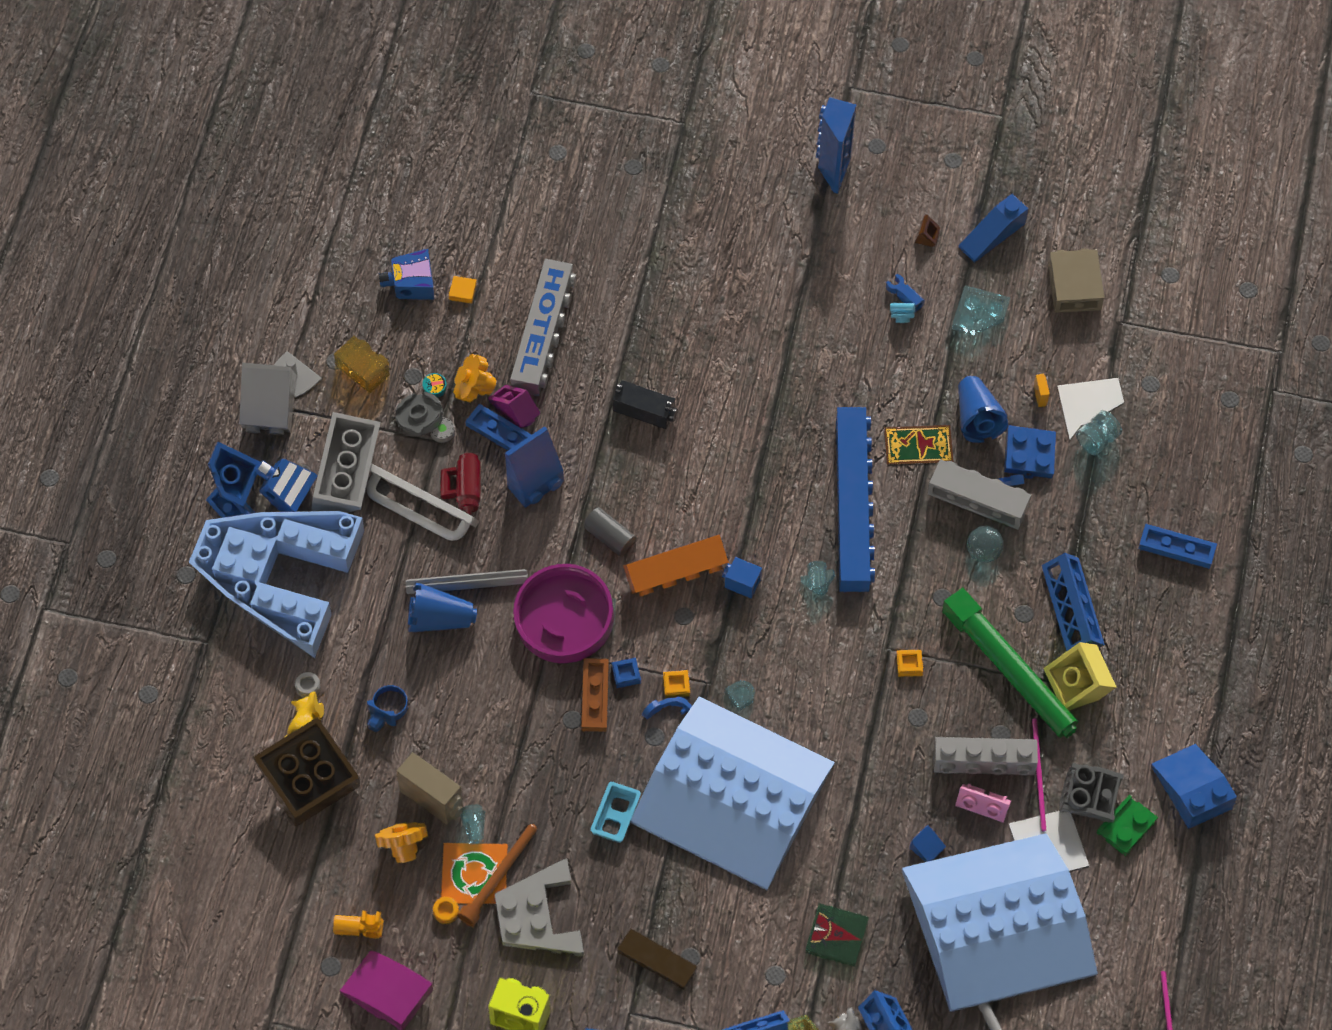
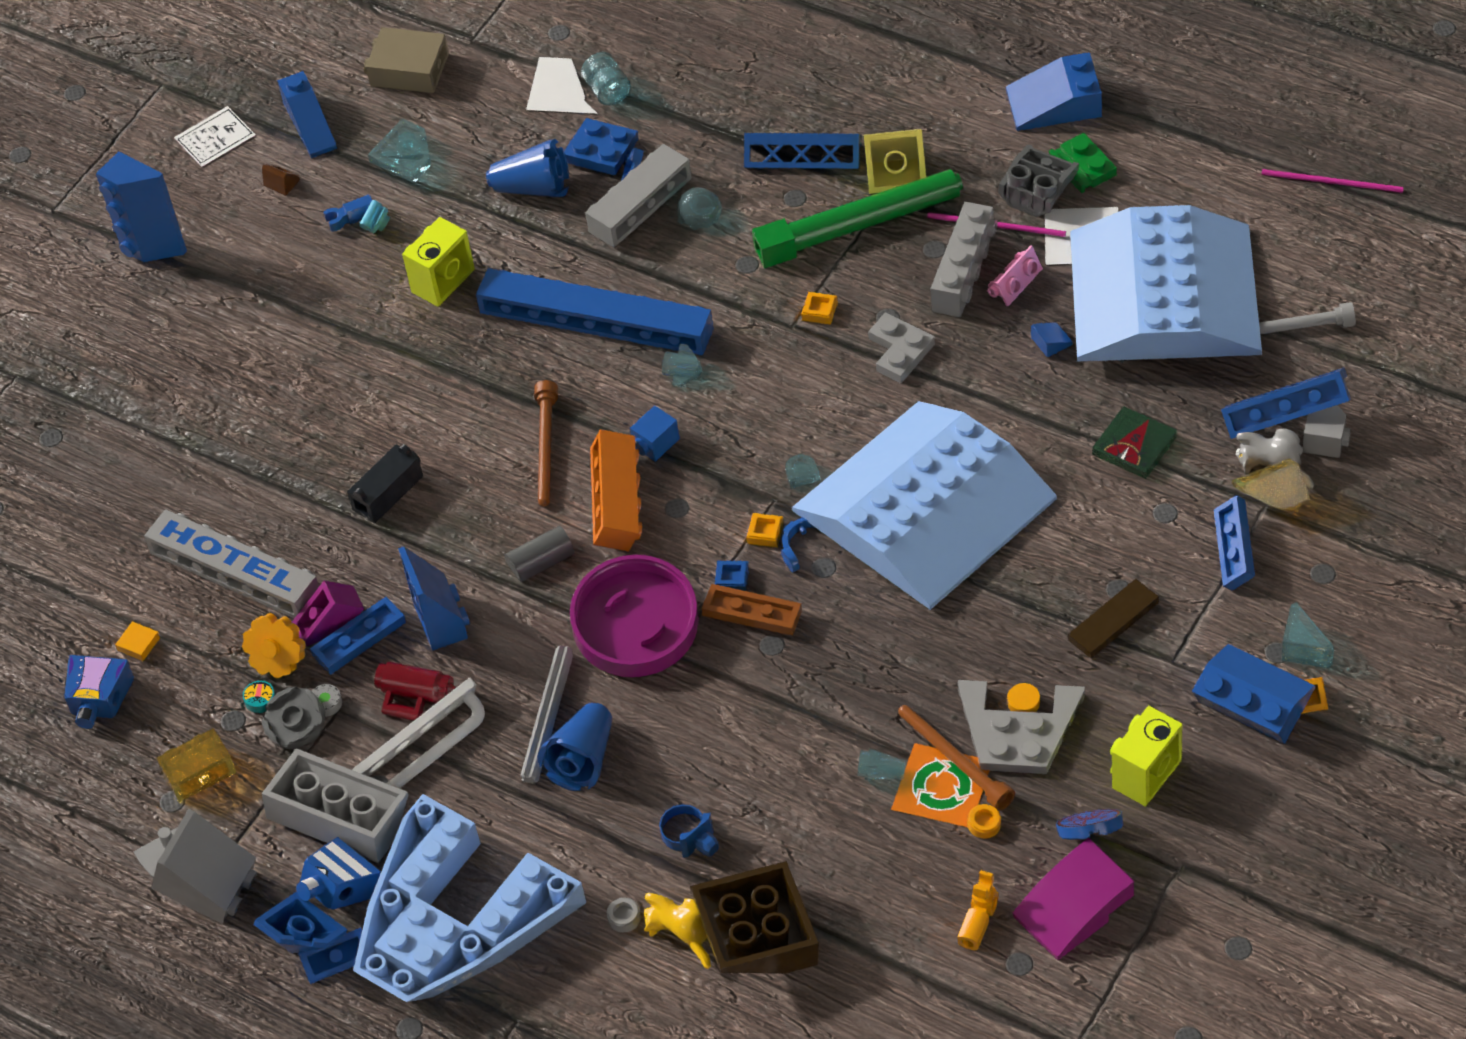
camera: 65 degrees left, 10 degrees down
(402, 840) = (879, 840): light orange plant -> none
(430, 788) = (824, 793): dark tan brick -> none
(451, 983) = (1089, 822): none -> blue tile
(563, 911) = (1023, 698): none -> light orange tile
(605, 811) = (922, 613): medium azure piece -> none
(759, 490) = (546, 395): none -> dark orange piece
(862, 370) = (438, 261): none -> neon yellow brick
(888, 739) = (905, 346): none -> light grey plate
(918, 444) = (546, 245): sticker -> none
(959, 171) = (214, 136): none -> white sticker
(1041, 390) = (530, 118): light orange tile -> none
(1177, 546) = (768, 47): blue plate -> none

